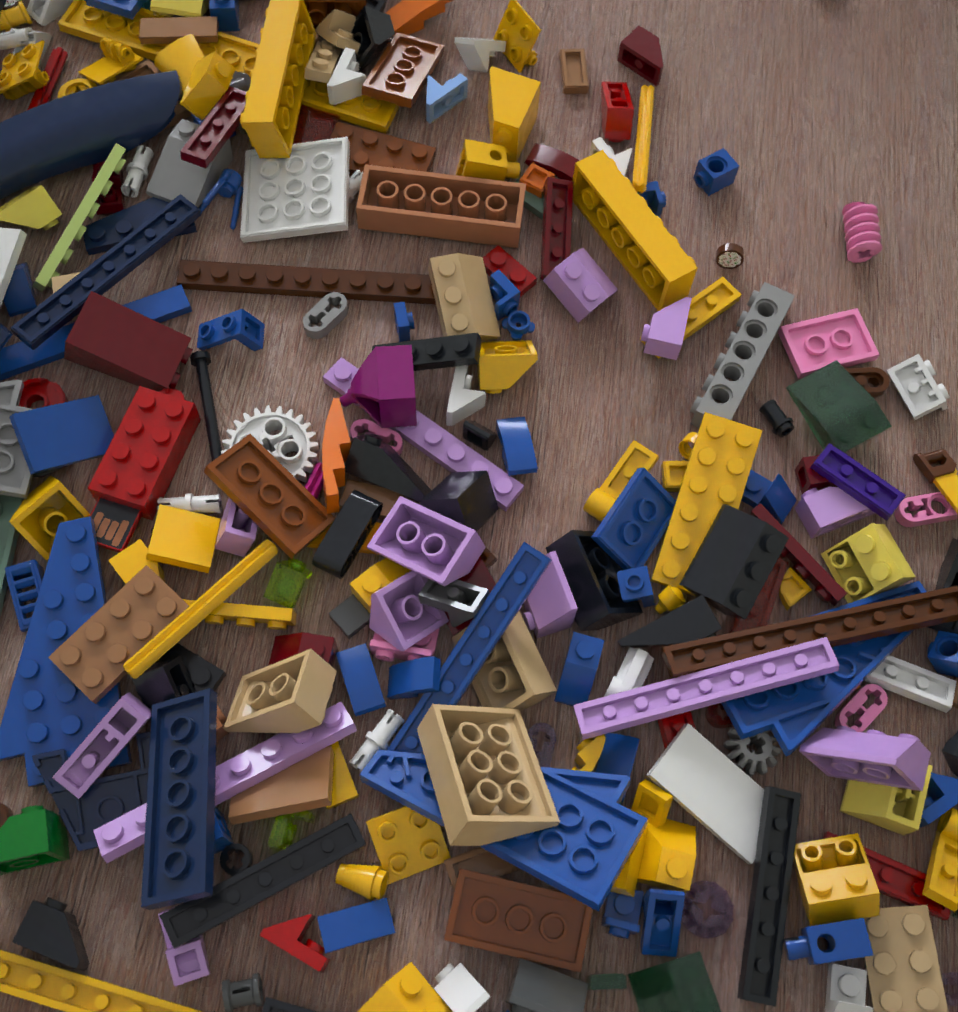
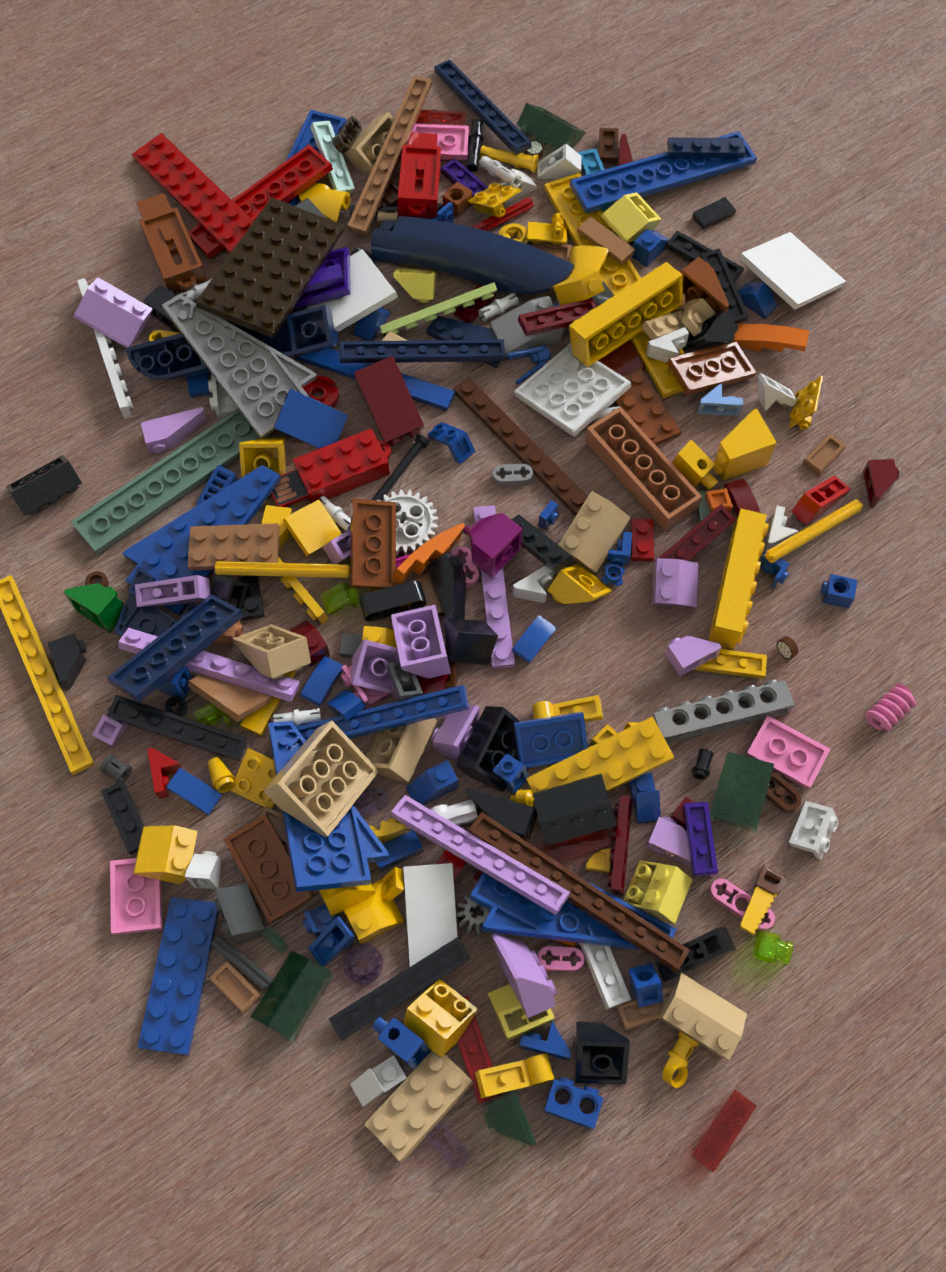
camera: 50 degrees right, 0 degrees up
(478, 434) = (522, 614): black slope -> none

